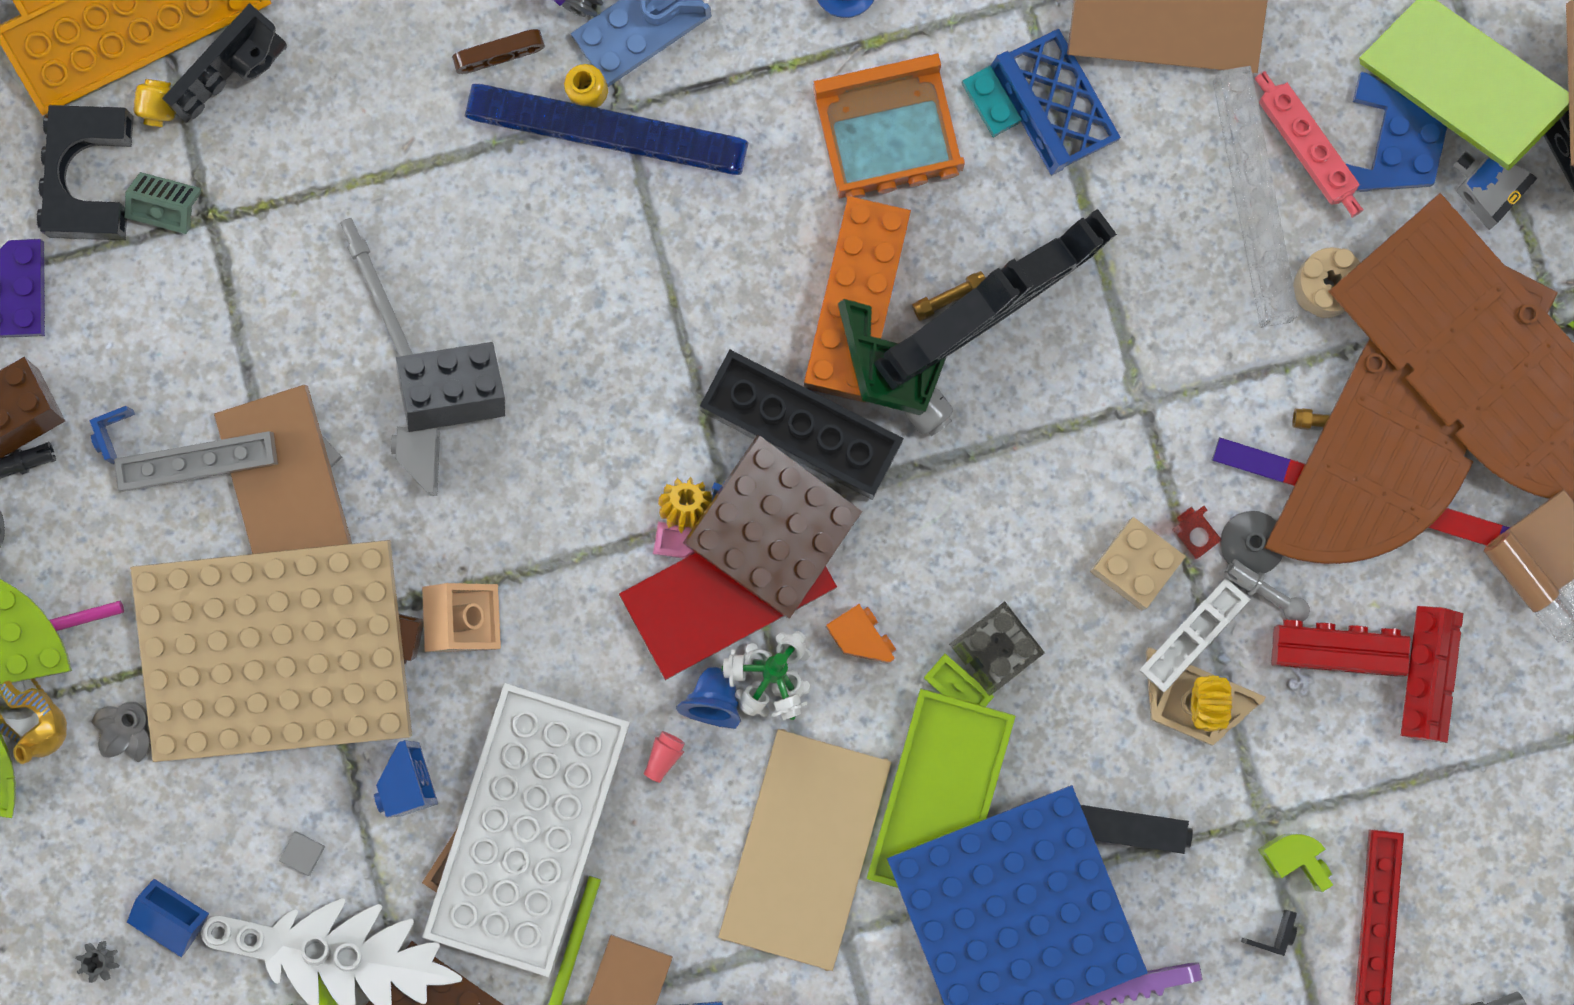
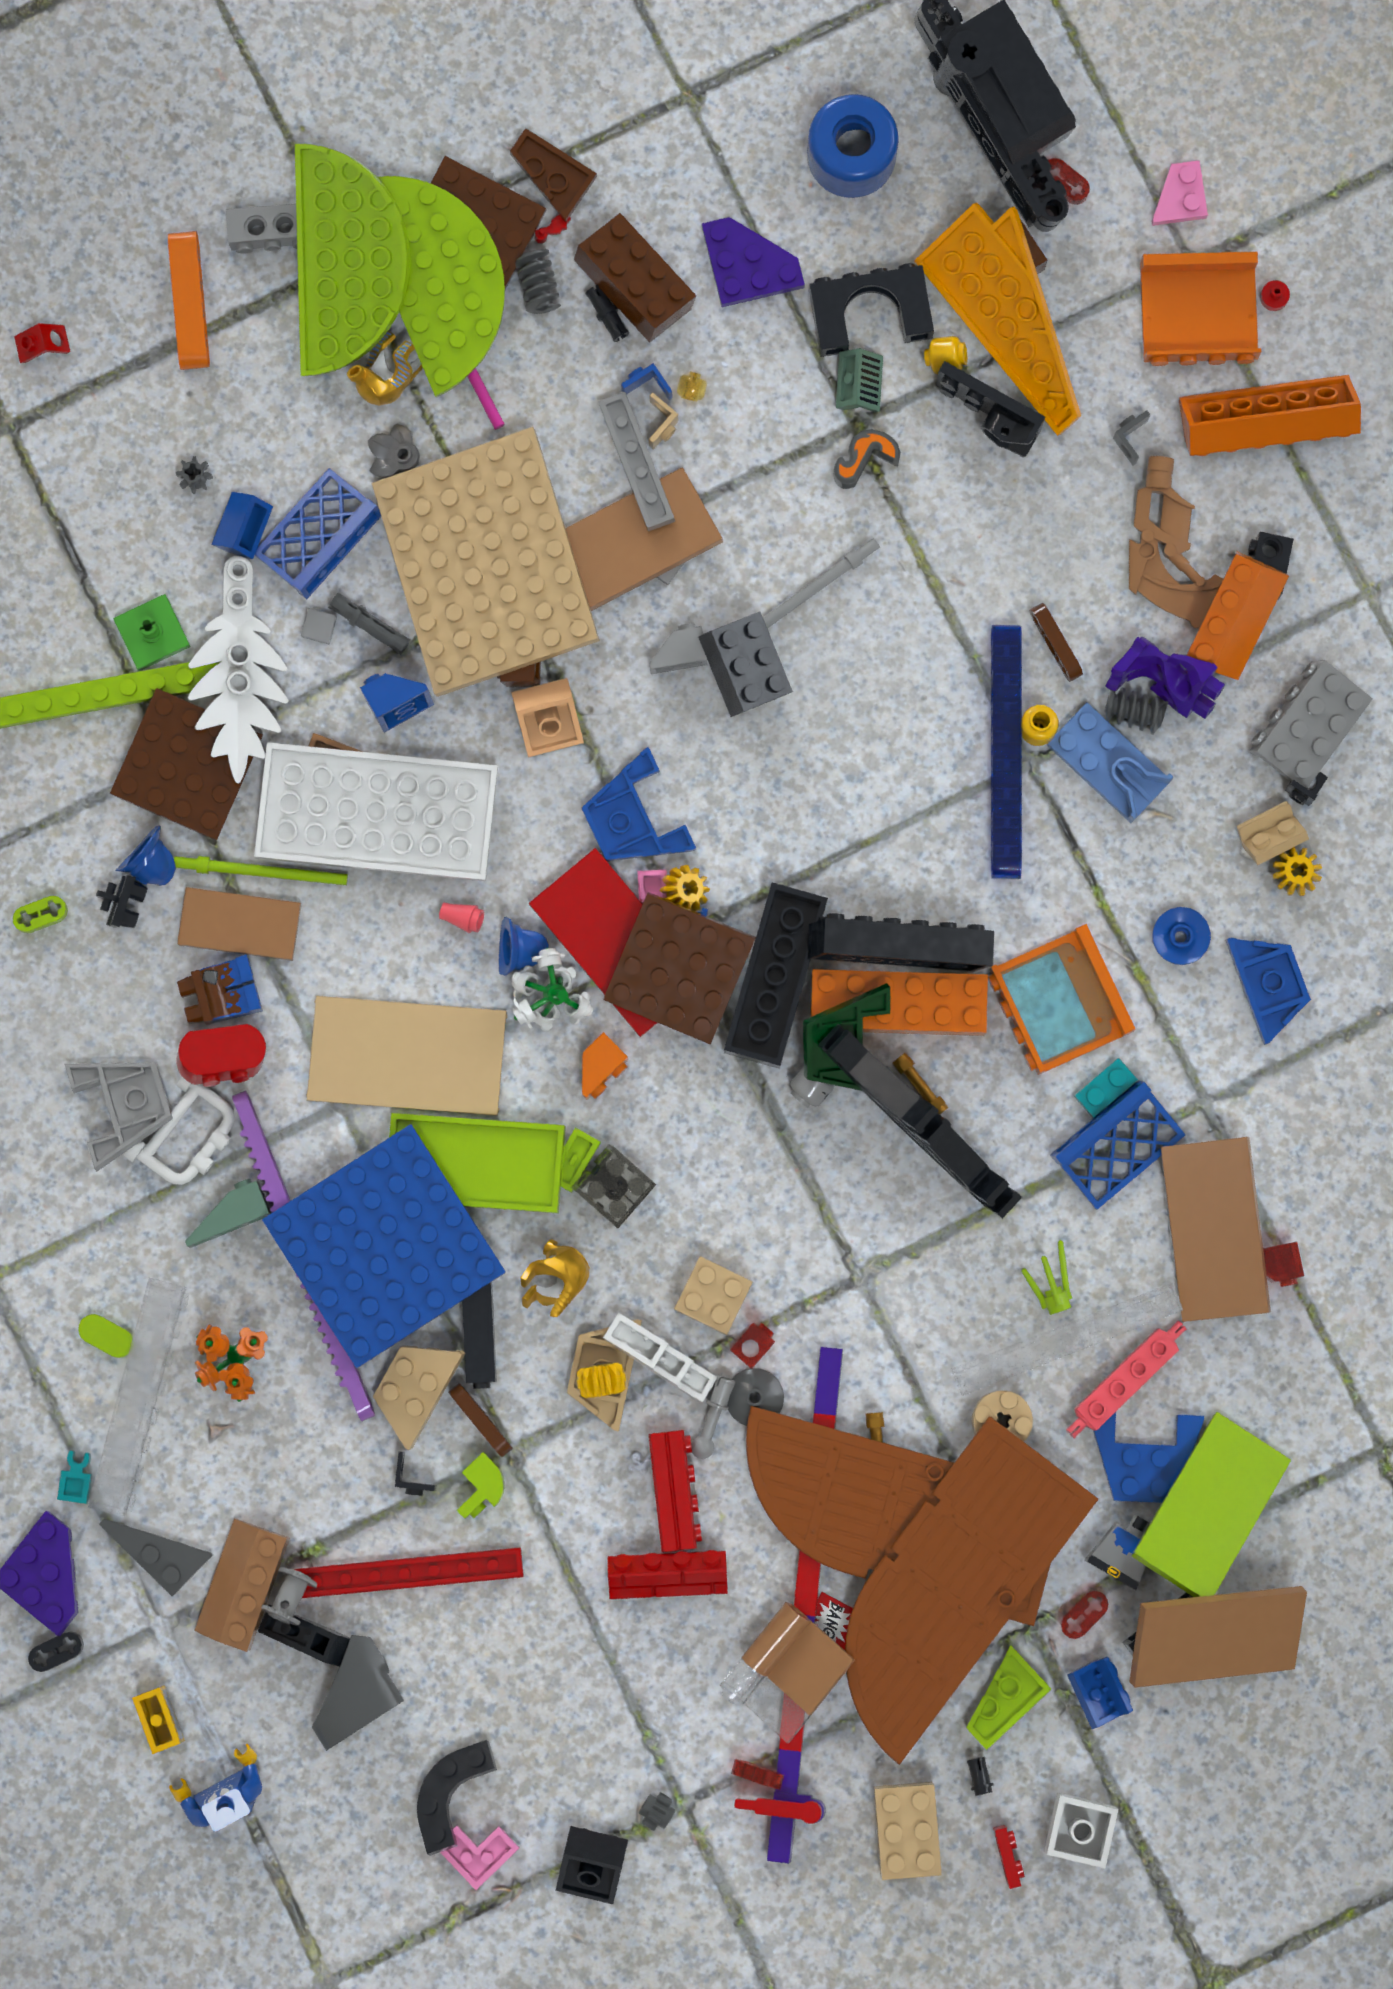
camera: 80 degrees right, 0 degrees up
(126, 386) = (692, 386): none -> clear yellow piece
(166, 420) = (667, 429): none -> tan bracket
(219, 818) = (331, 552): none -> blue fence
(238, 215) = (860, 451): none -> dark grey animal
(302, 805) = (364, 620): none -> dark grey pin
(593, 559) = (622, 822): none -> blue wing
(795, 279) = (901, 944): none -> black brick
(1083, 715) = (571, 1274): none -> pearl gold piece
(1176, 912) = (414, 1388): none -> tan wing
(1206, 198) = (1056, 1298): none -> lime plant
(1224, 846) = (480, 1420): none -> reddish brown beam
(1507, 505) = (833, 1618): none -> sticker
(1554, 236) = (1078, 1609): none -> clear red beam

